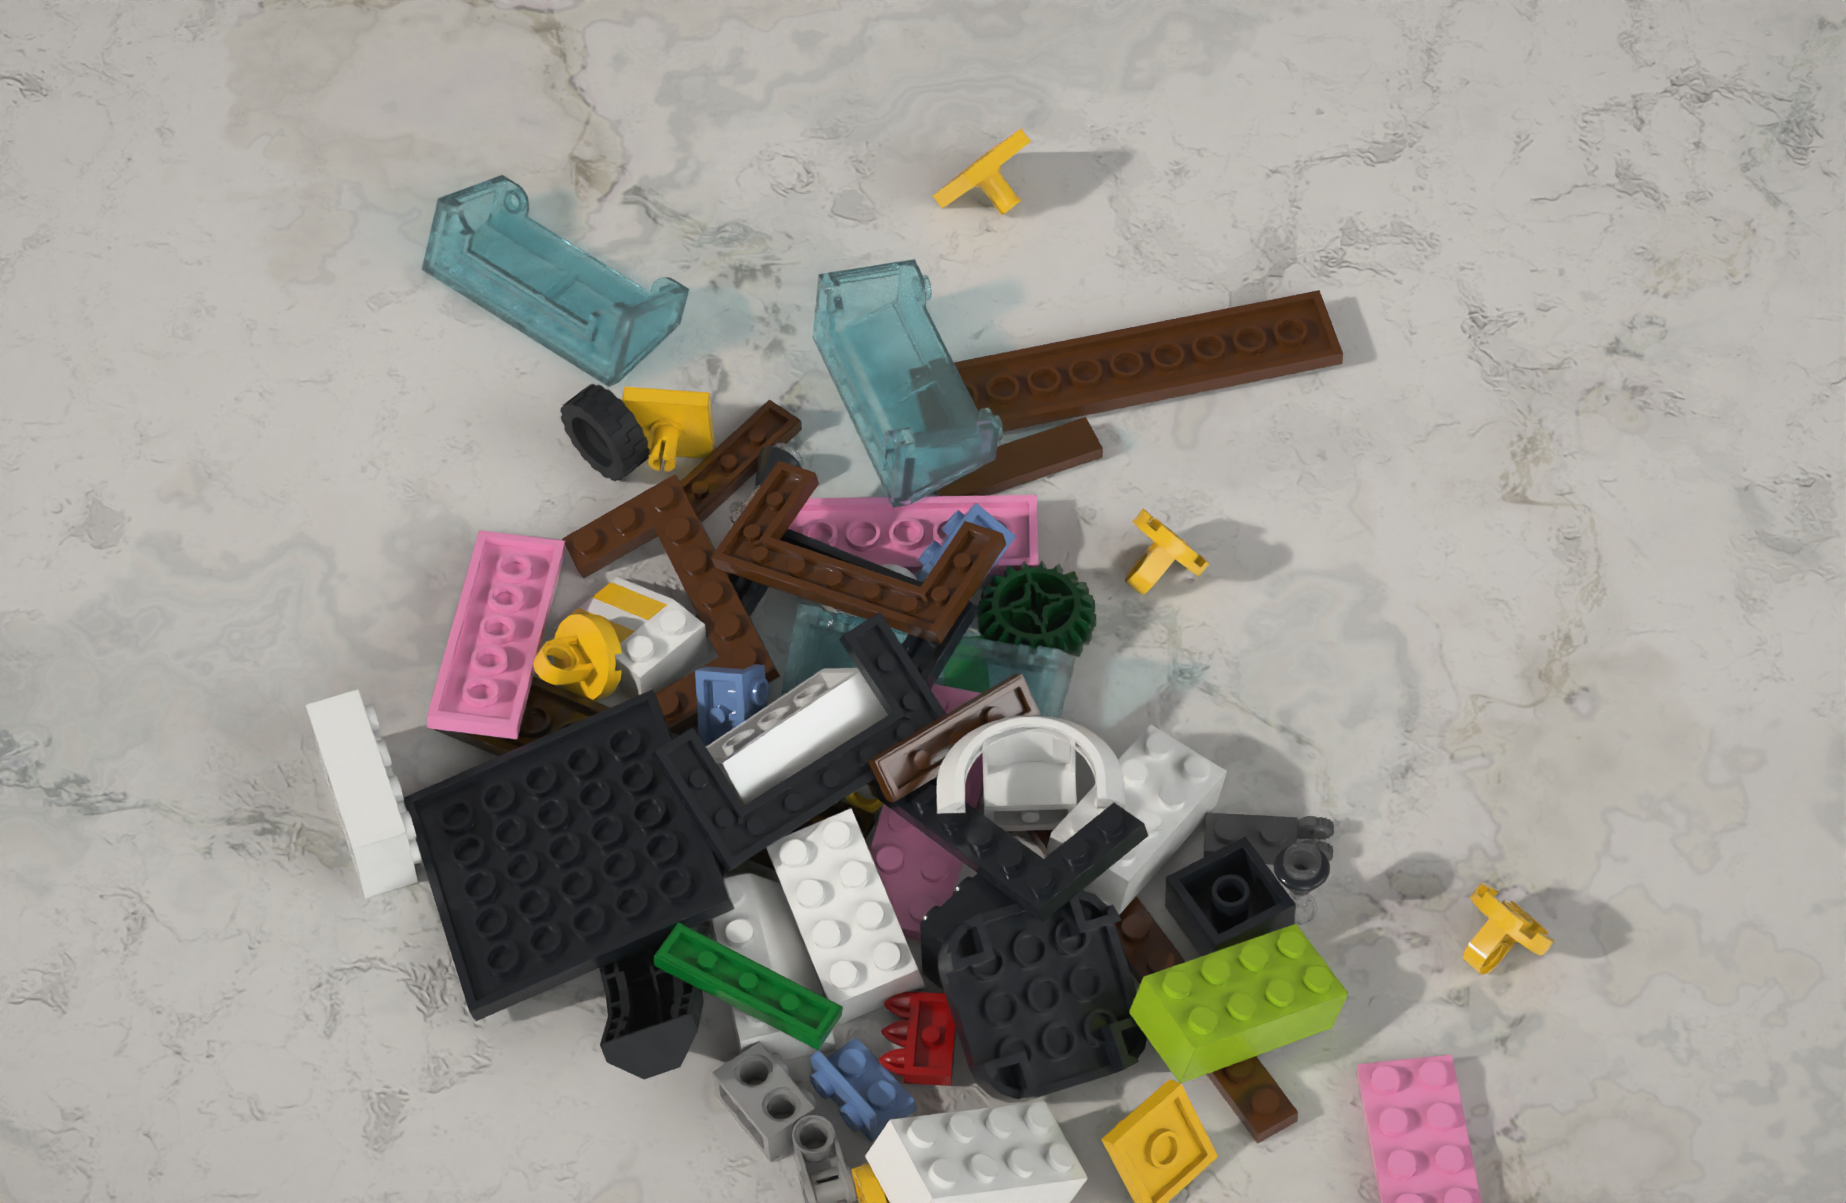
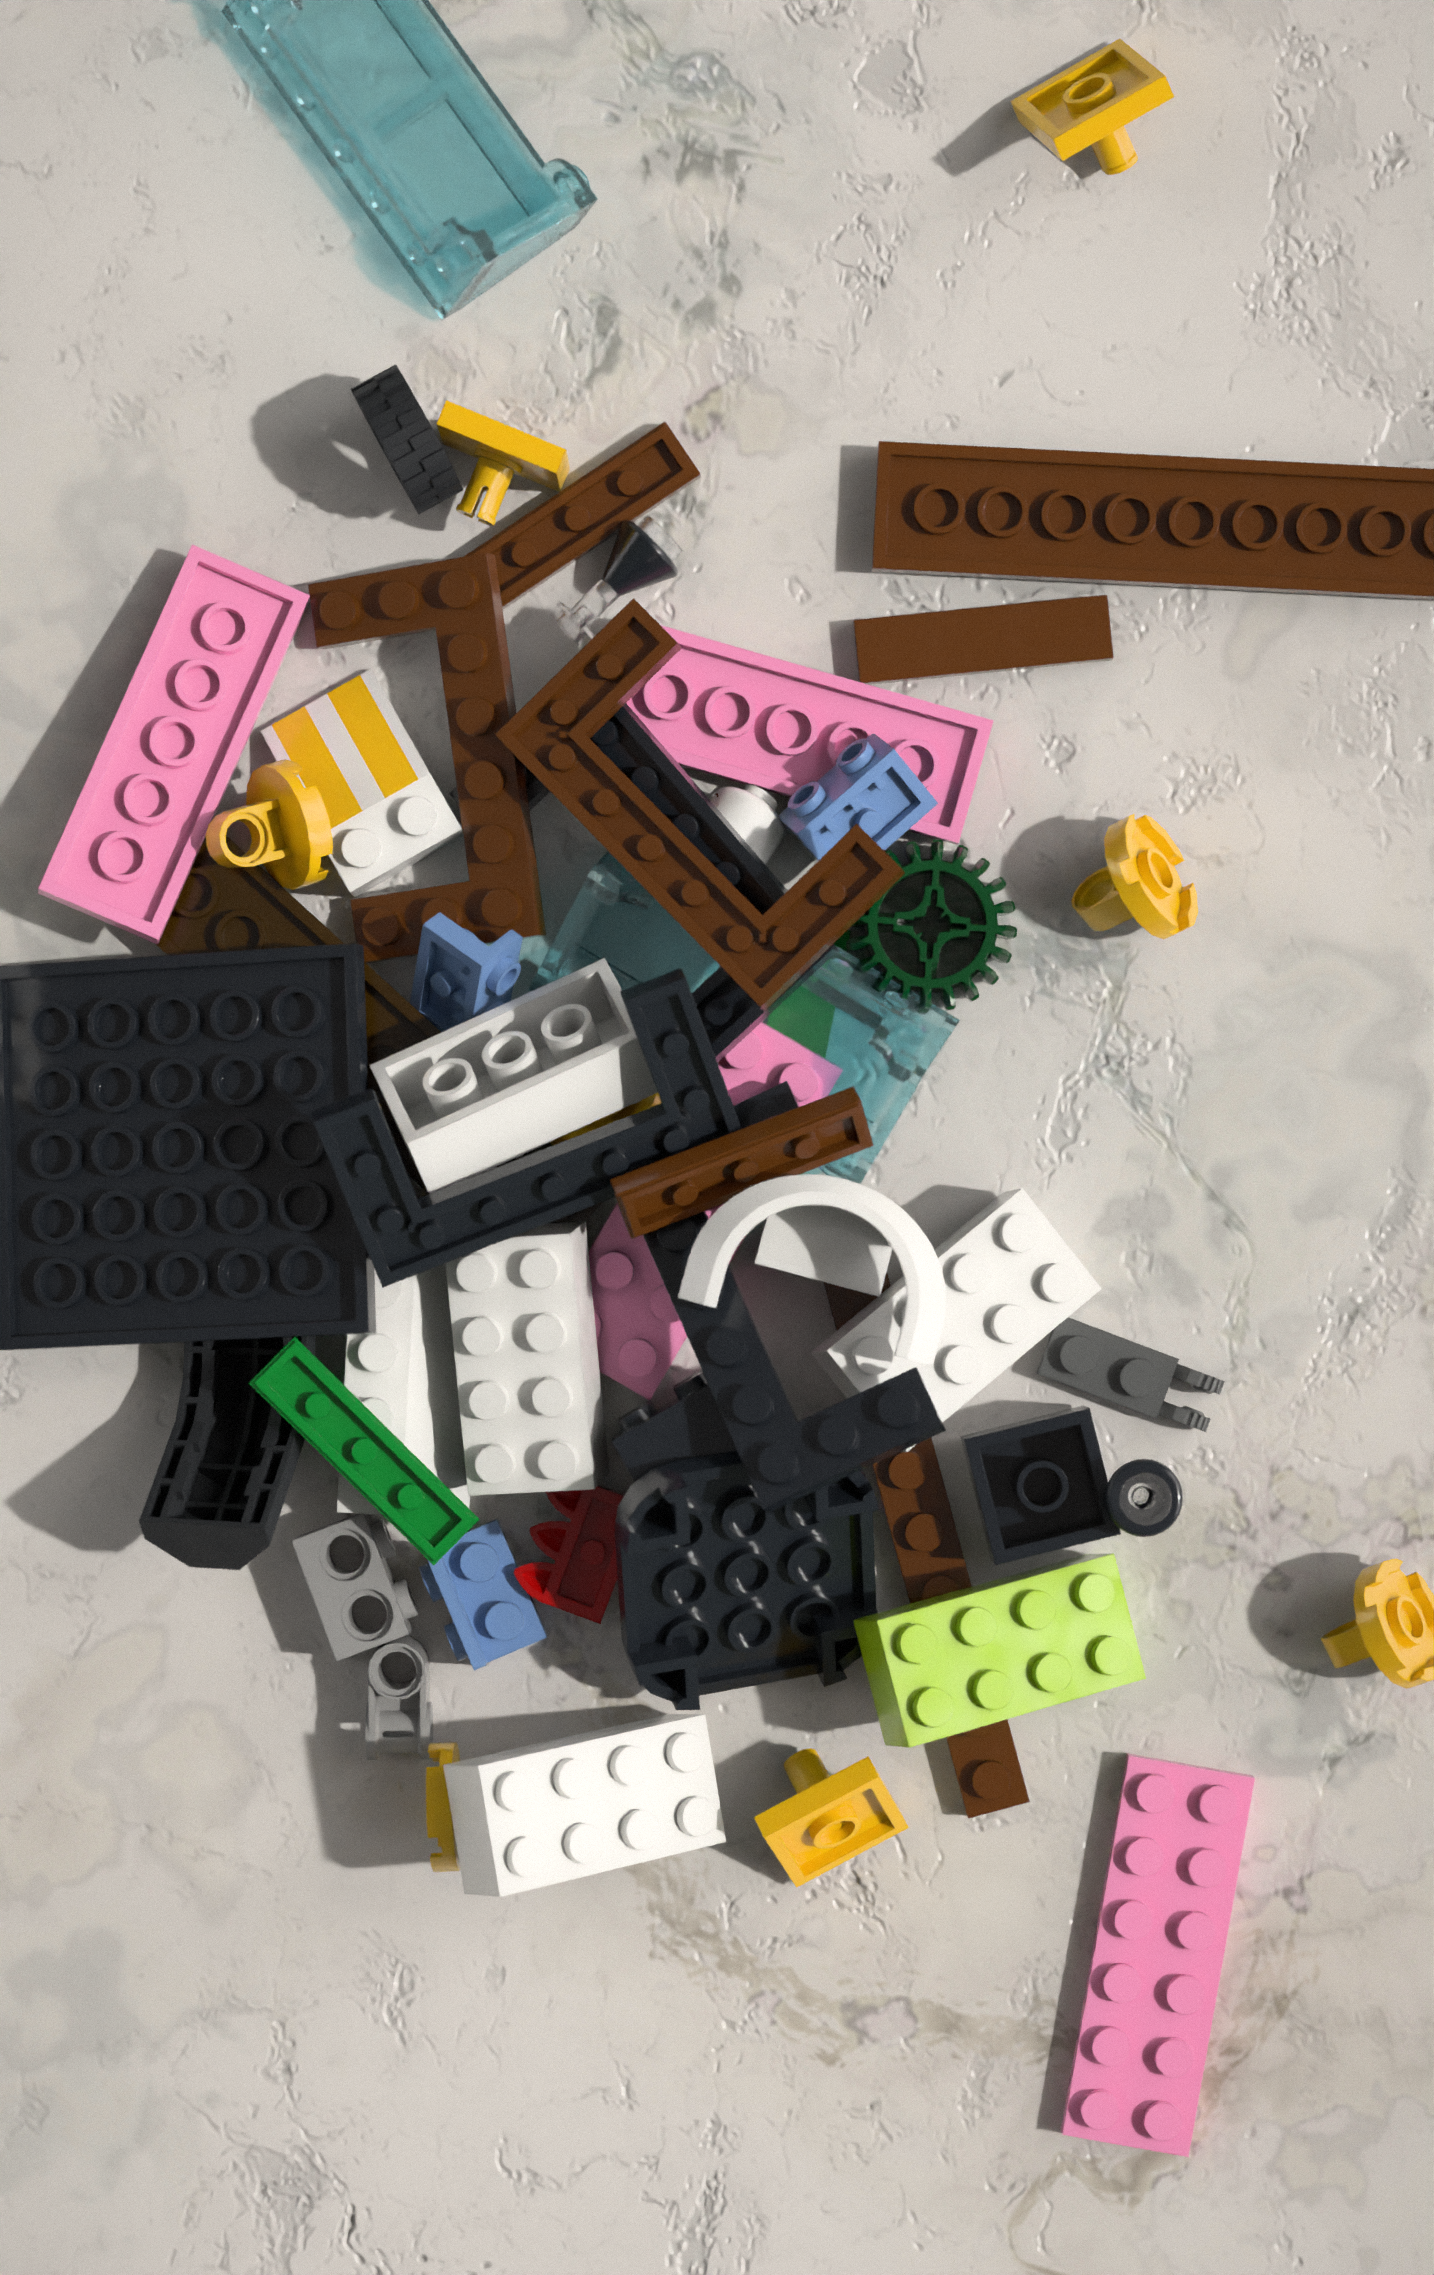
camera: 10 degrees right, 35 degrees up
(900, 380) = (857, 475): clear light blue windscreen -> none

